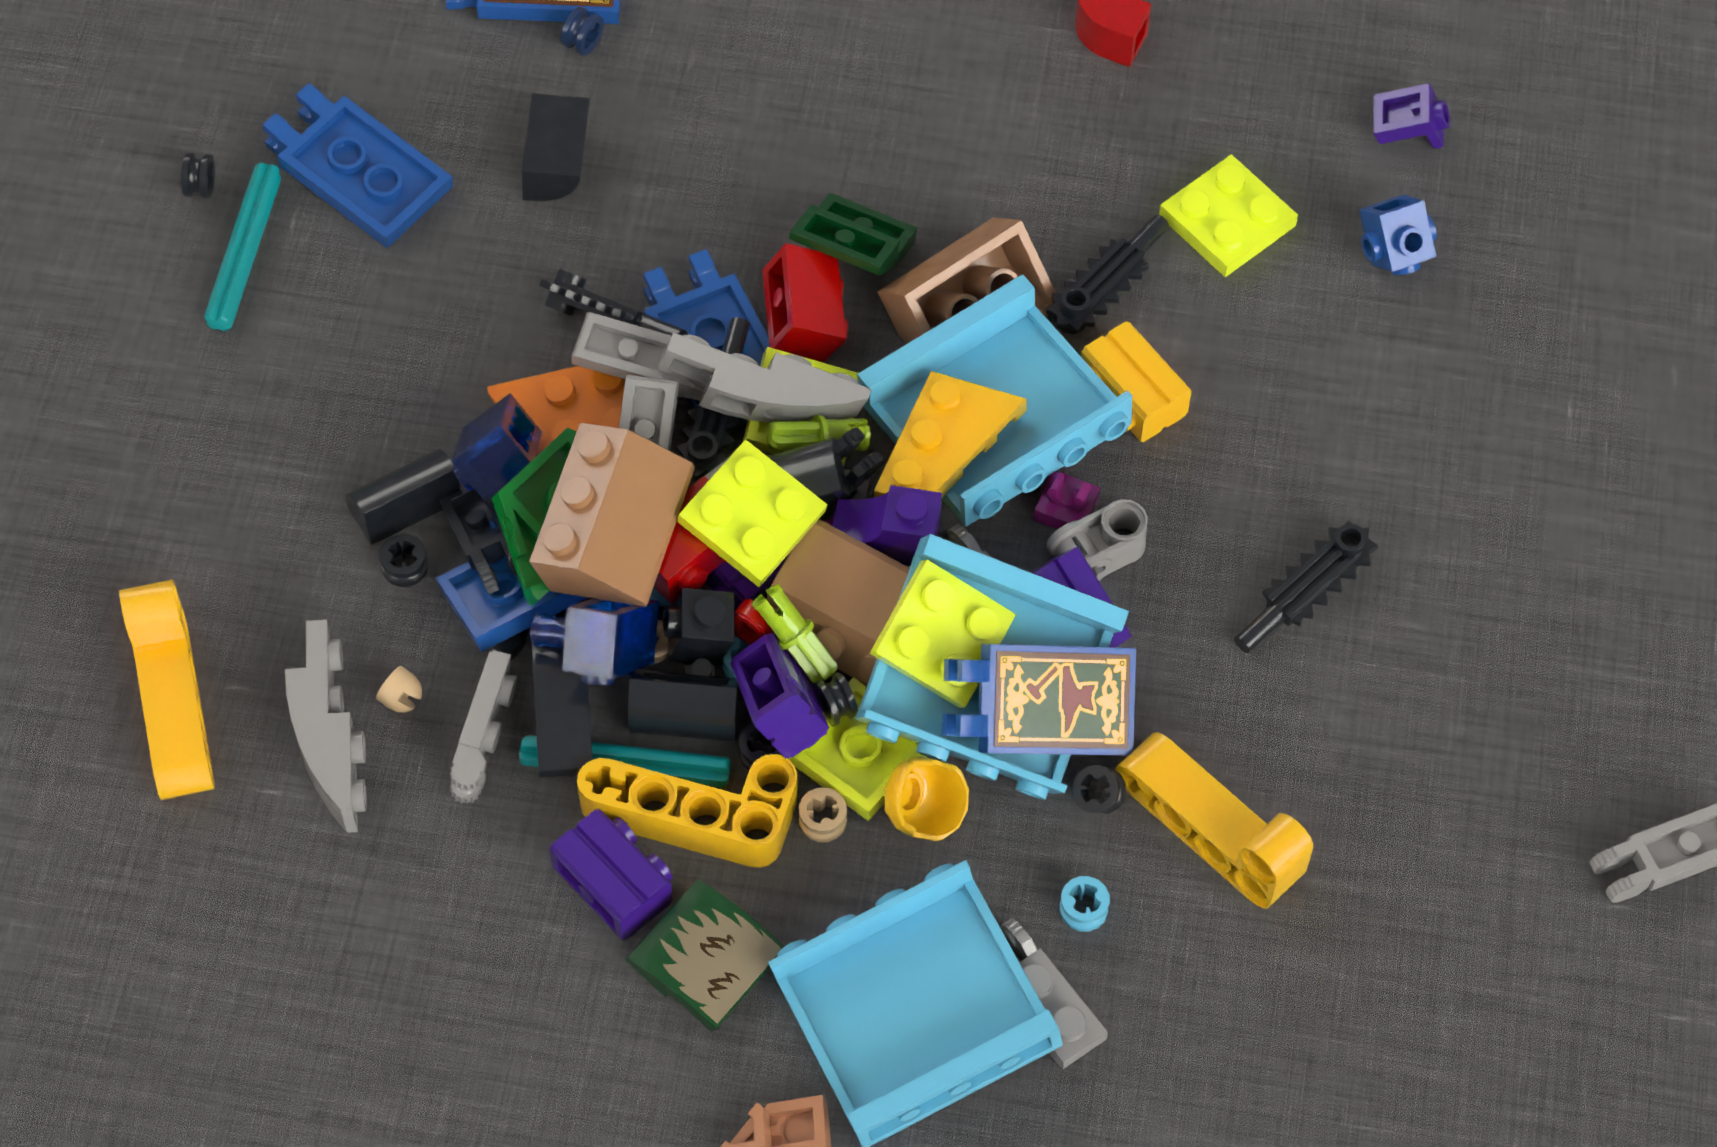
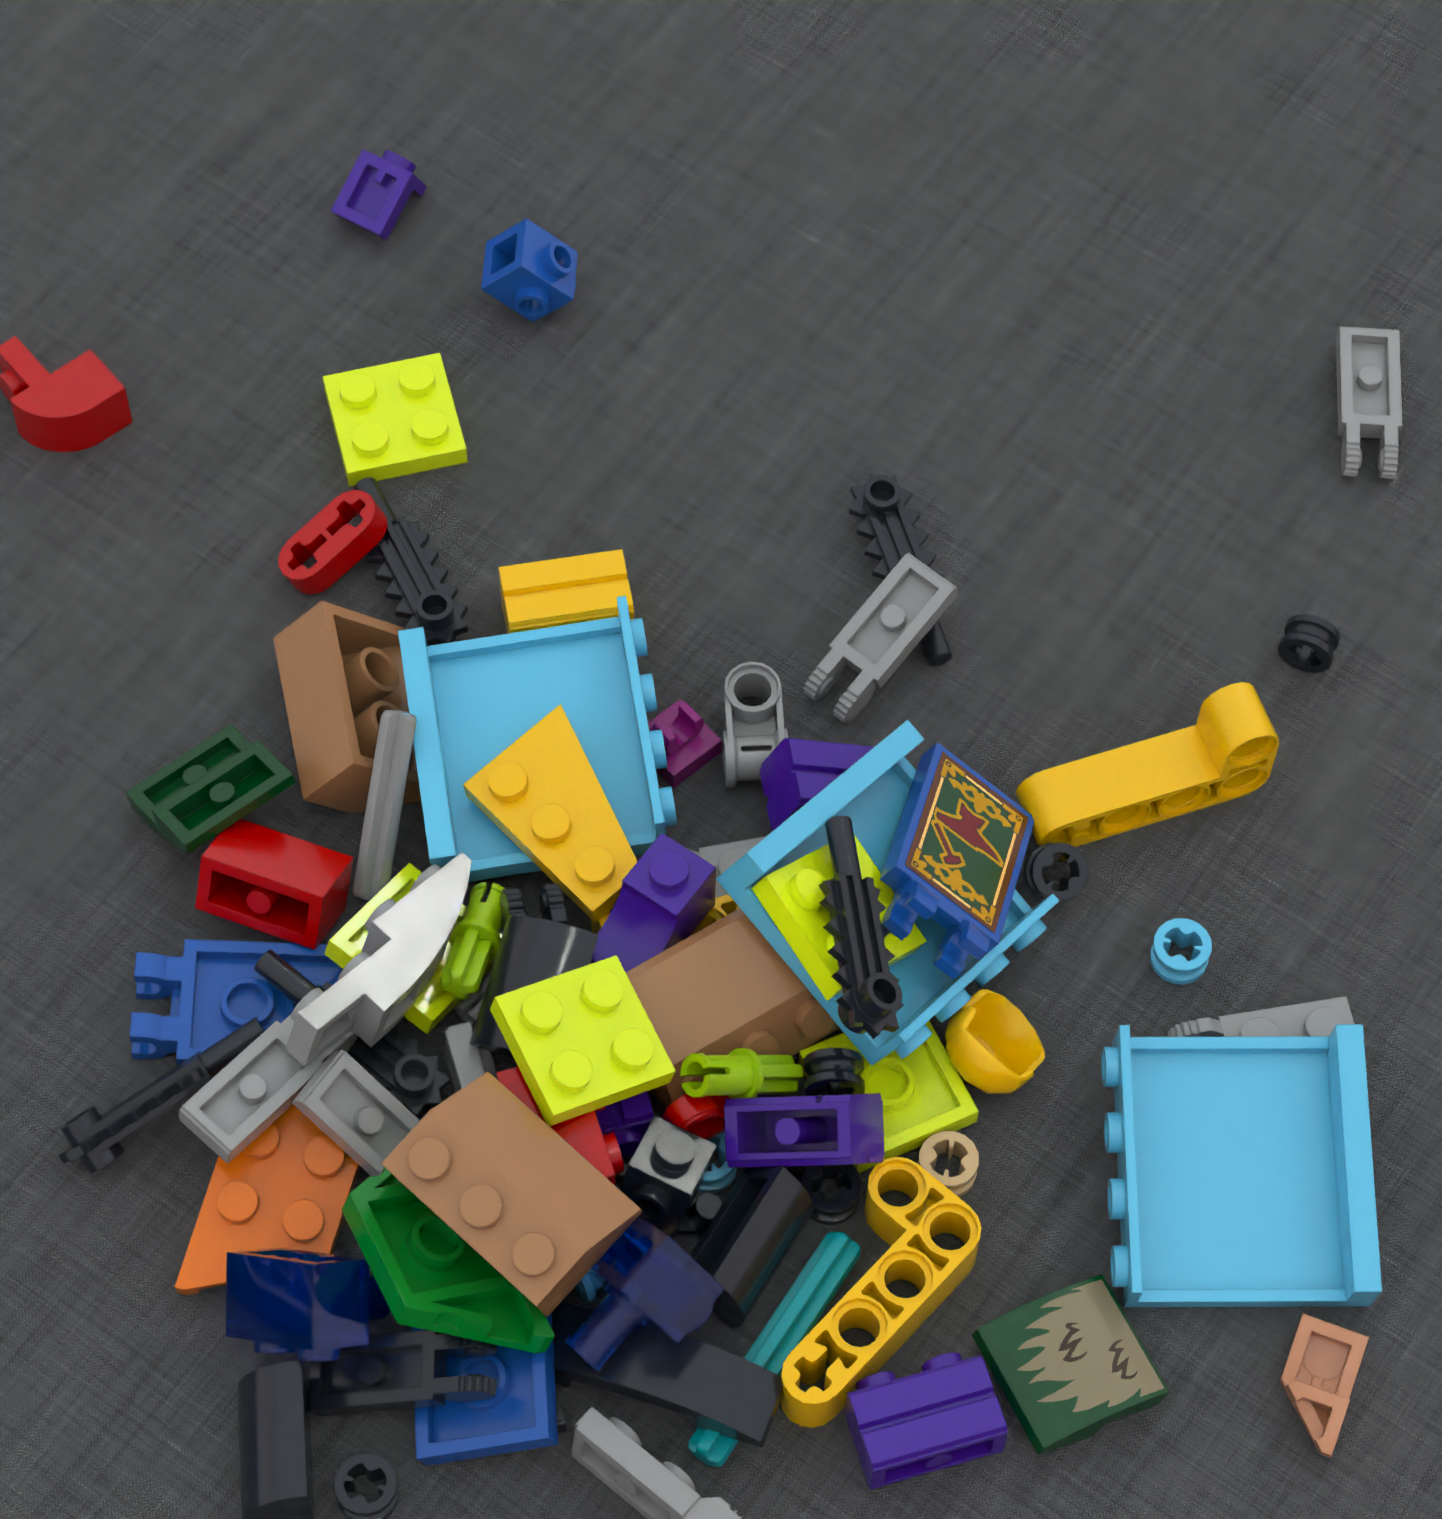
camera: 65 degrees left, 0 degrees up
(897, 332) = (384, 803): none -> light grey axle
(921, 639) = (868, 987): none -> black piece
(1095, 219) = (332, 542): none -> red beam
(1227, 590) = (882, 634): none -> light grey hinge
(1407, 890) = (1309, 643): none -> black bush

